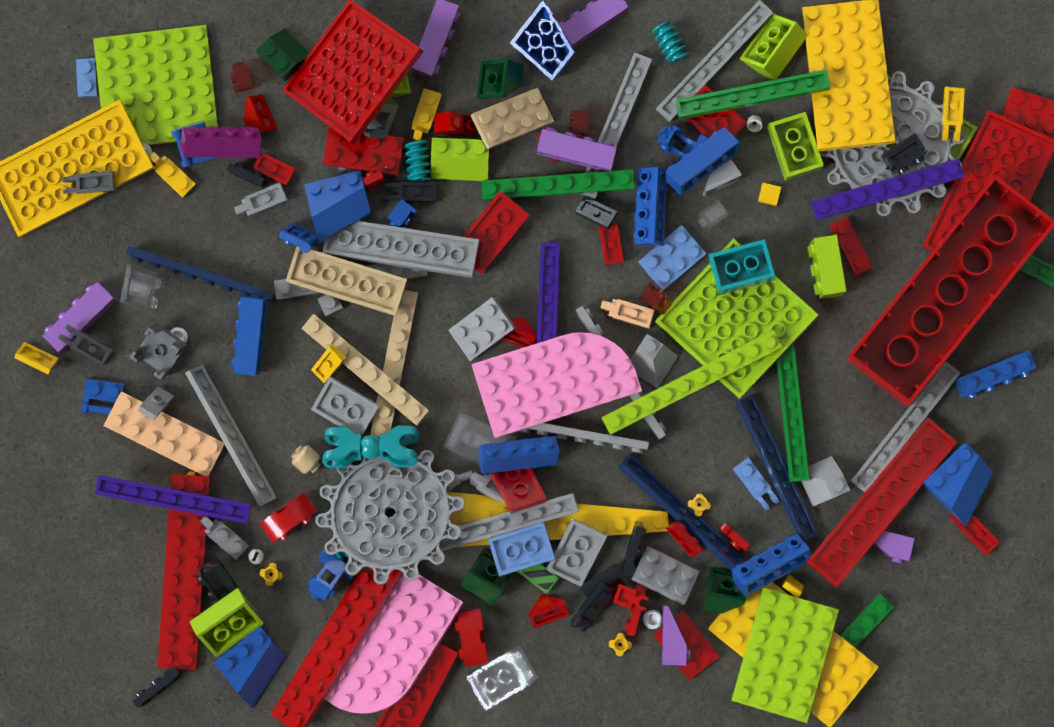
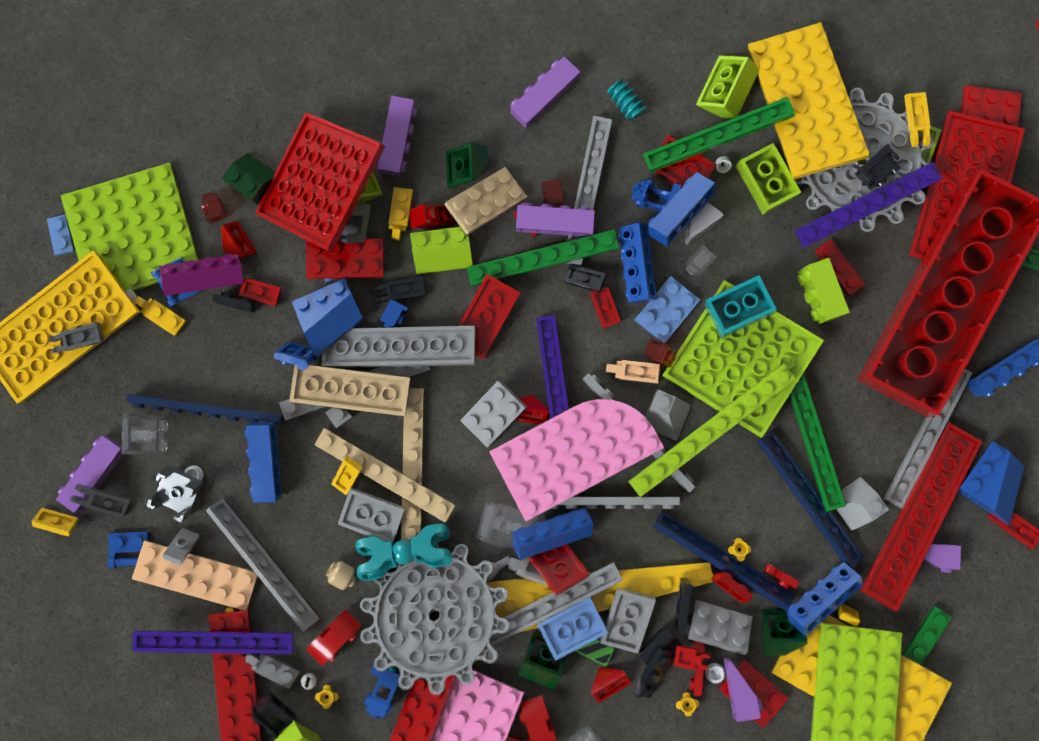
camera: 10 degrees left, 0 degrees up
(262, 200) = (253, 325): light grey hinge -> none
(374, 180) = (360, 285): red plate -> none
(416, 161) = (399, 259): teal piece -> none
(544, 42) = (504, 119): blue wedge -> none
(716, 58) = (674, 108): light grey plate -> none
(754, 482) = (790, 517): medium blue hinge -> none
(769, 194) = (750, 230): yellow tile -> none

